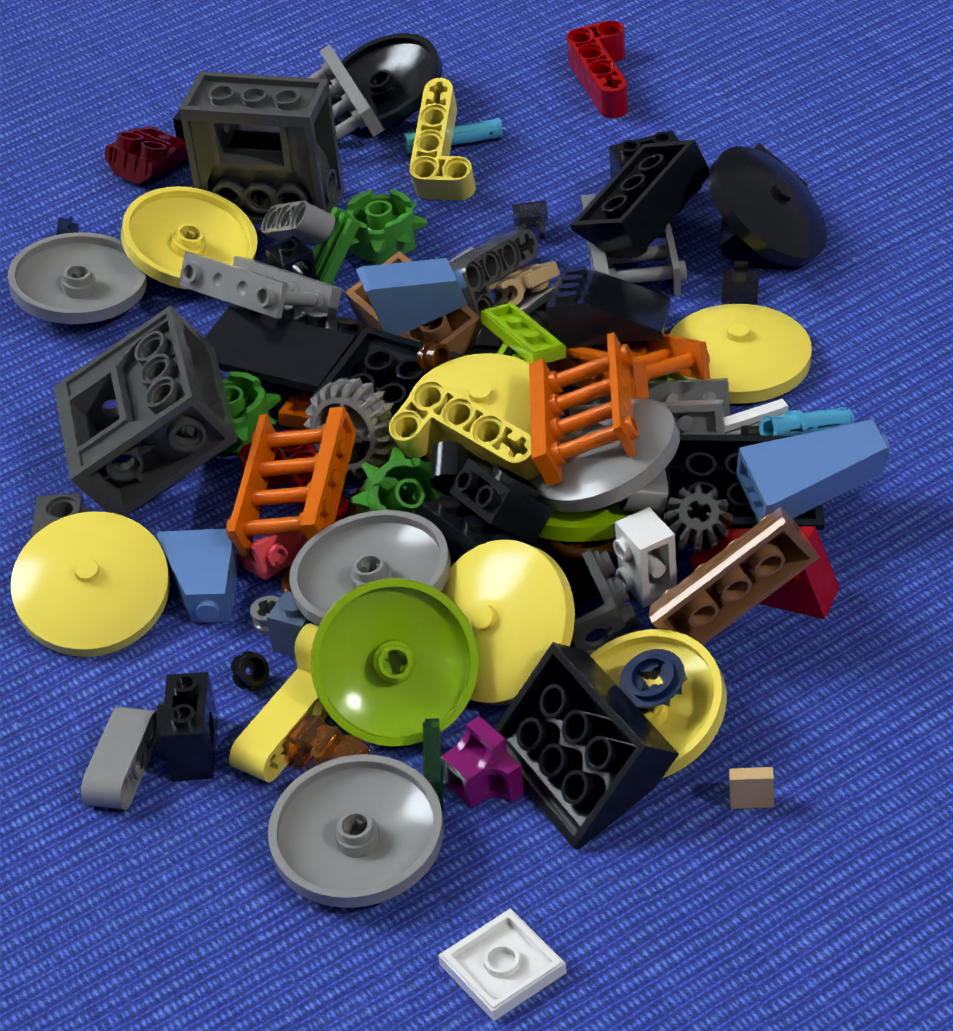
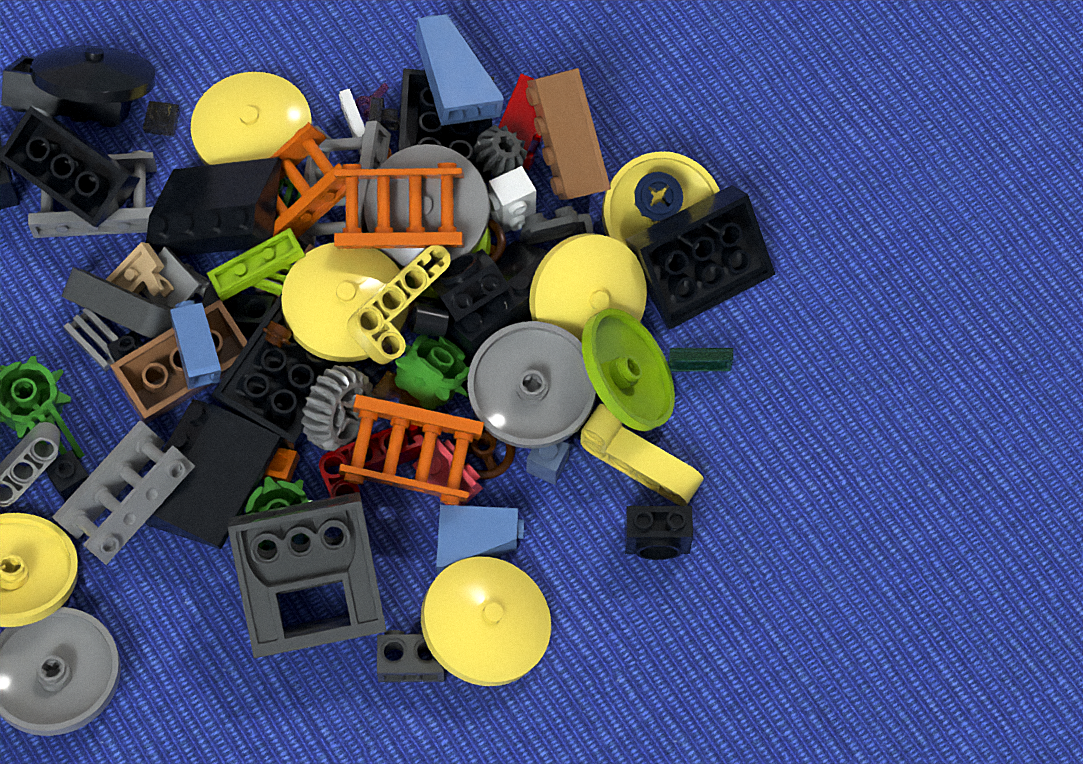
camera: 95 degrees left, 25 degrees up
(120, 758) = (676, 585): light grey beam -> none
(258, 670) = (589, 494): black plate -> none
(259, 611) = (521, 476): light grey bush -> none
(321, 741) = (683, 430): clear orange leg -> none
(356, 831) = (770, 407): light grey dish -> none
(482, 766) = (706, 324): magenta brick -> none
(502, 964) = (876, 322): white tile -> none
(530, 216) = (32, 274): clear smoke tile -> none
(751, 787) = (736, 155): tan tile -> none
(798, 423) = (375, 83): medium azure pin -> none

